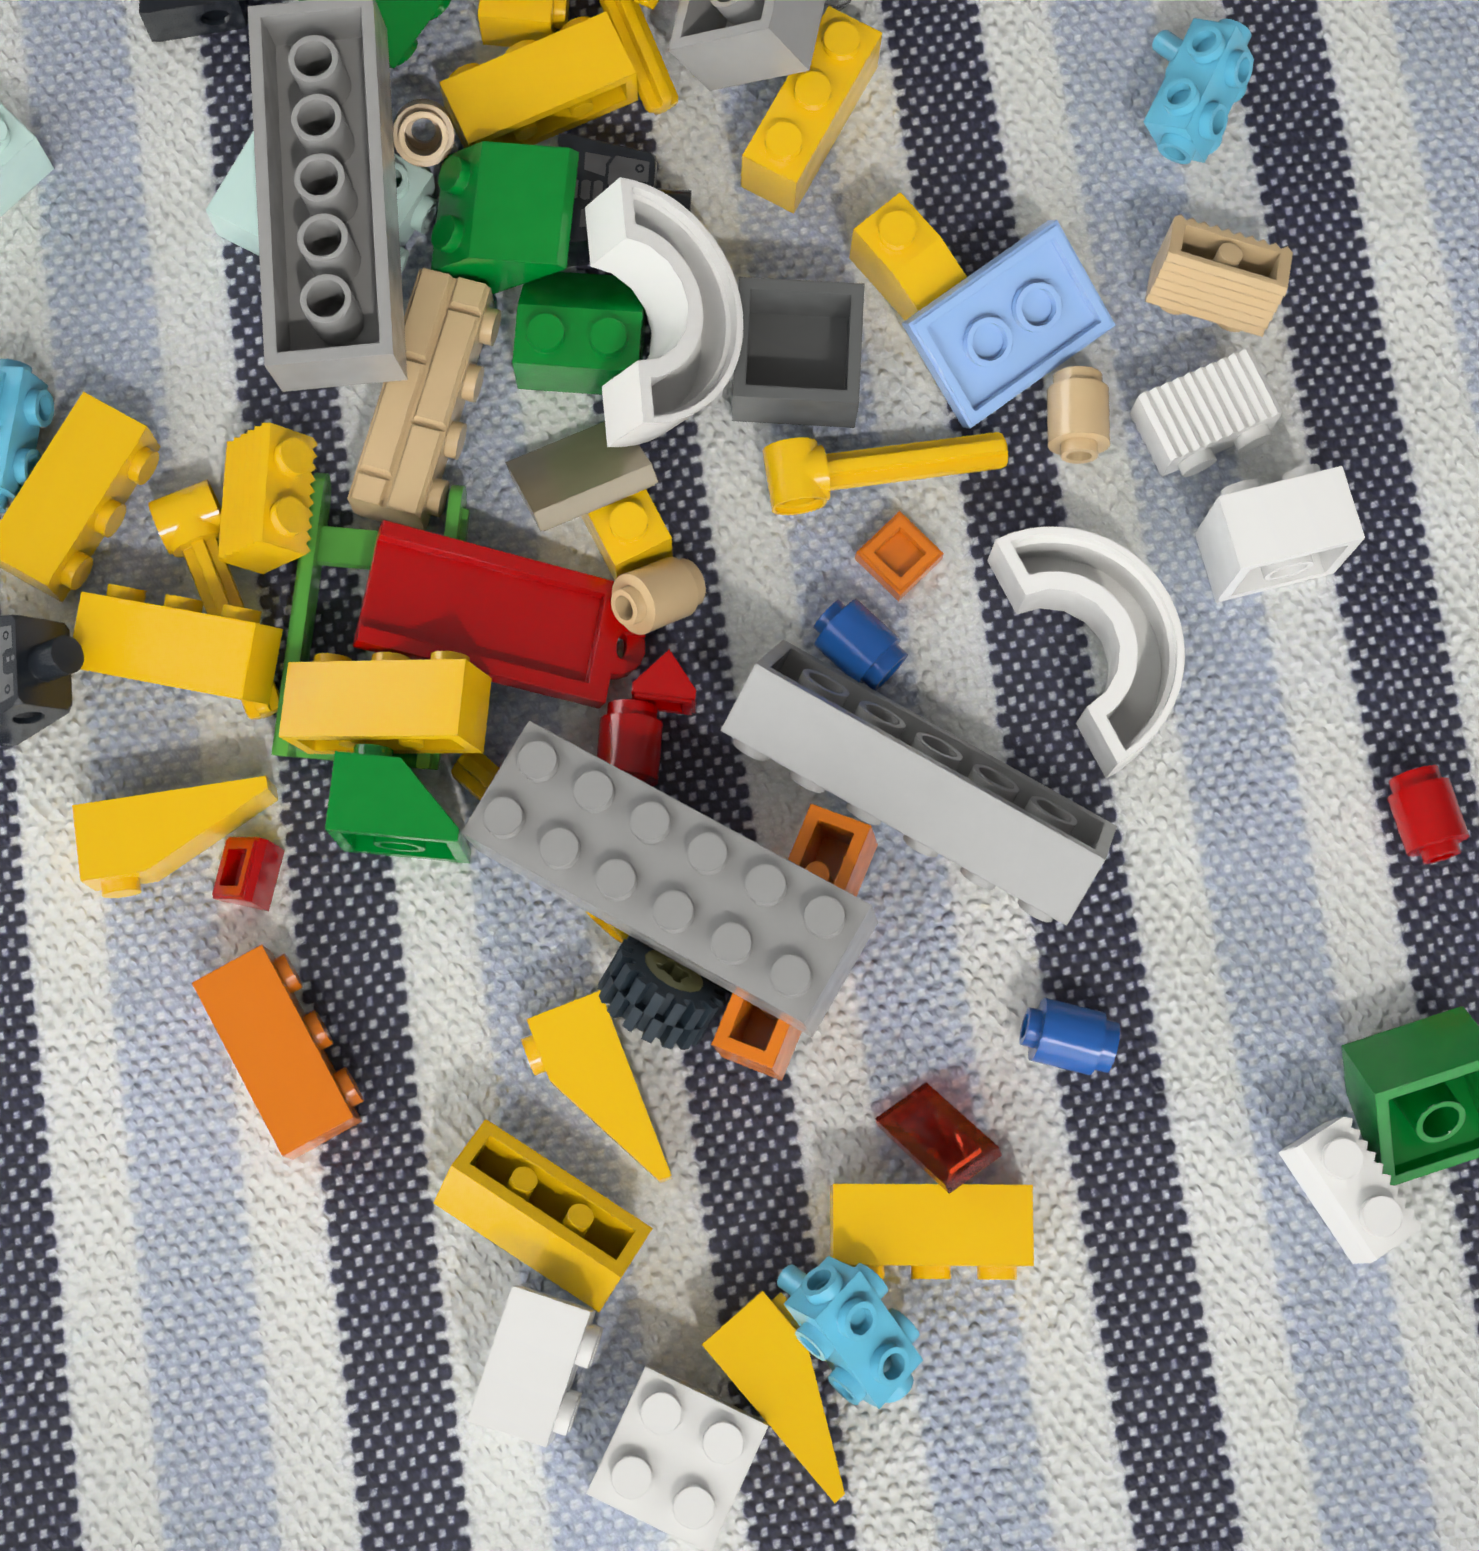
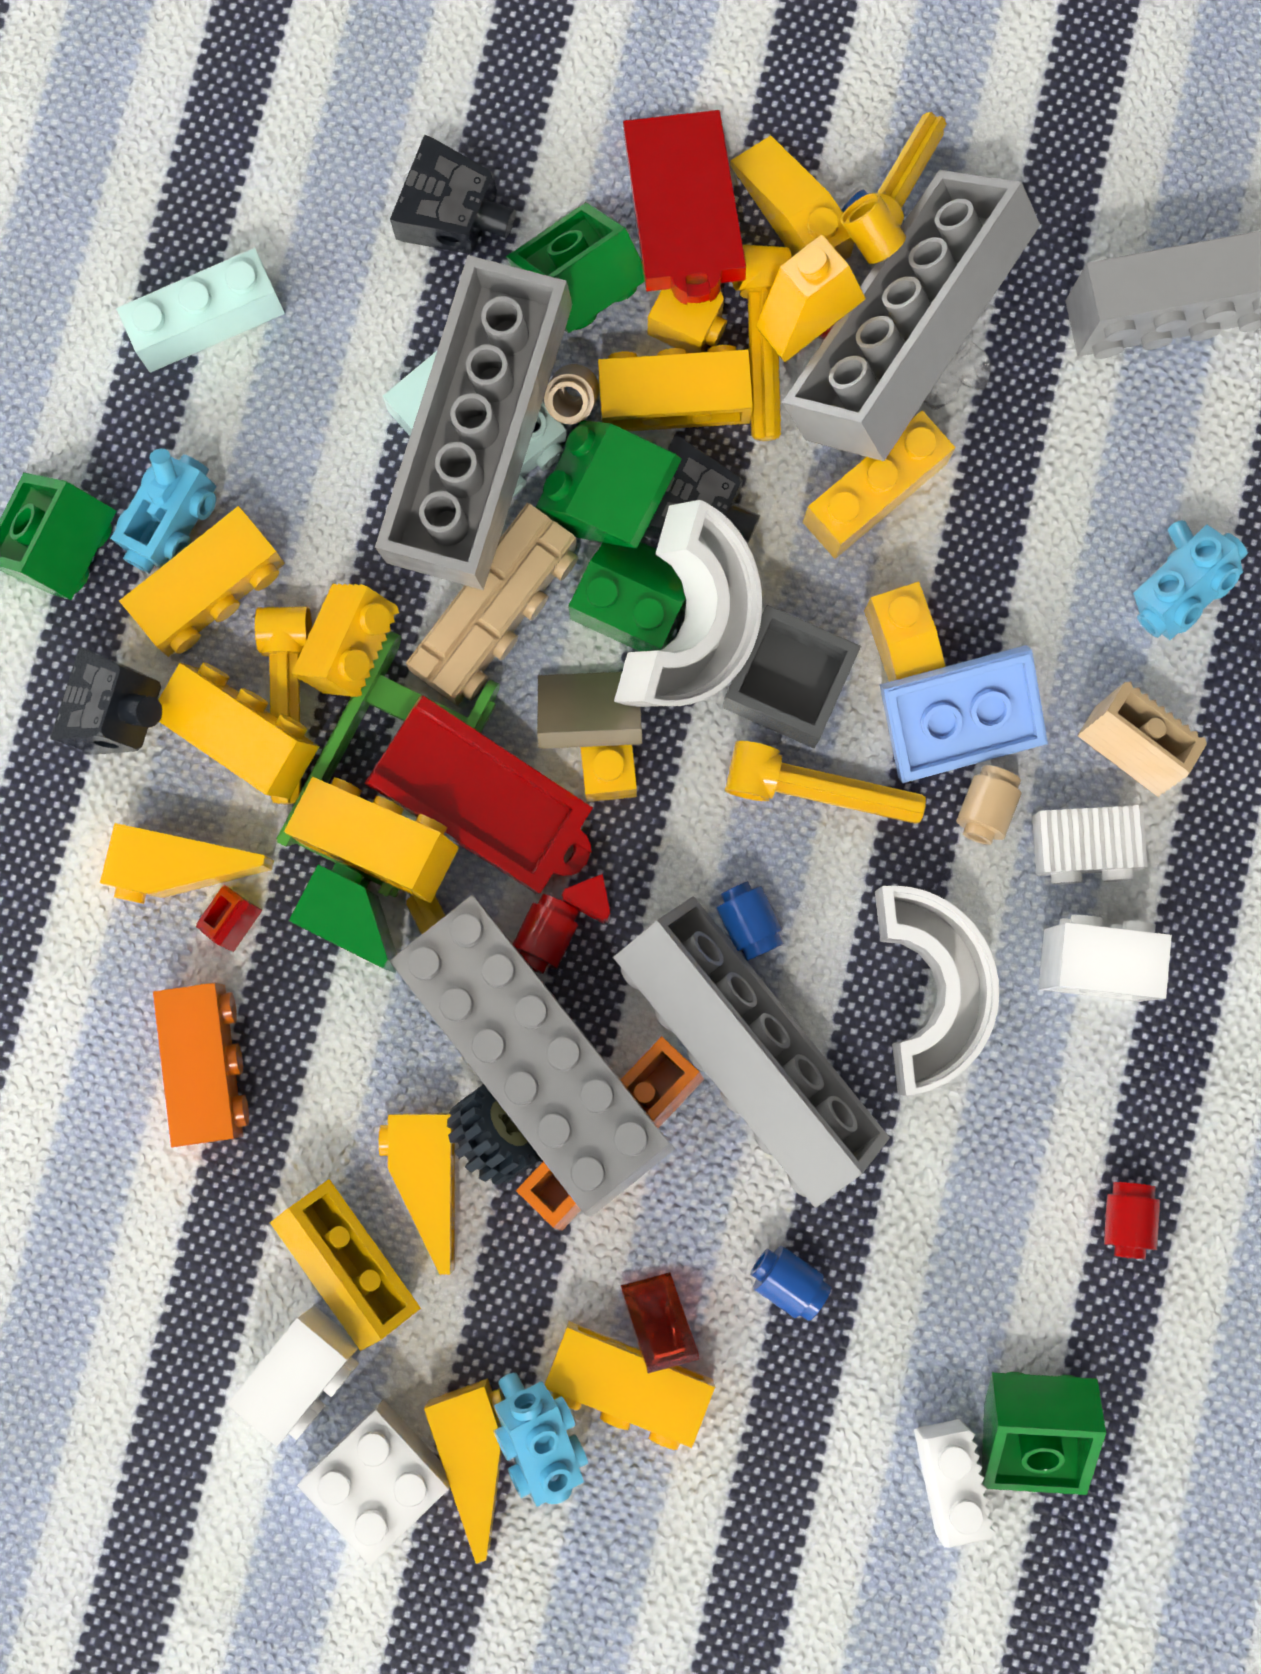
camera: 25 degrees right, 5 degrees up
(657, 594) = (611, 825): tan brick -> none
(899, 556) = (808, 861): orange tile -> none

